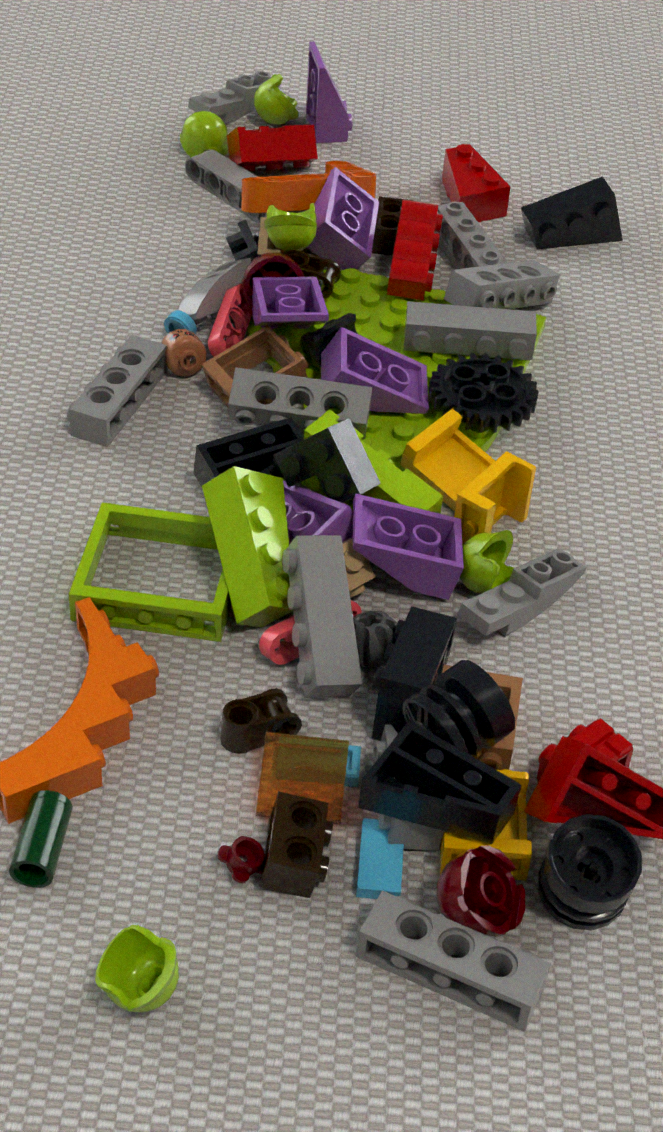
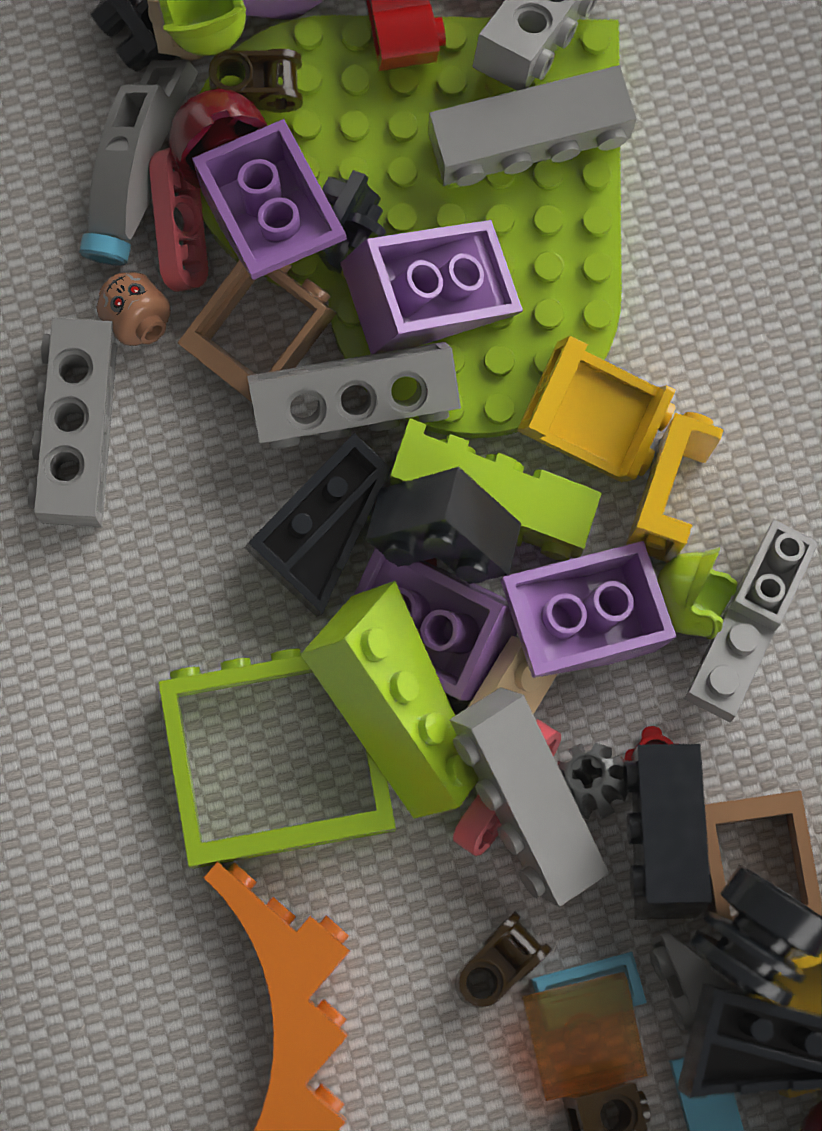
camera: 20 degrees left, 35 degrees up
(484, 392) = (568, 220): black gear -> none

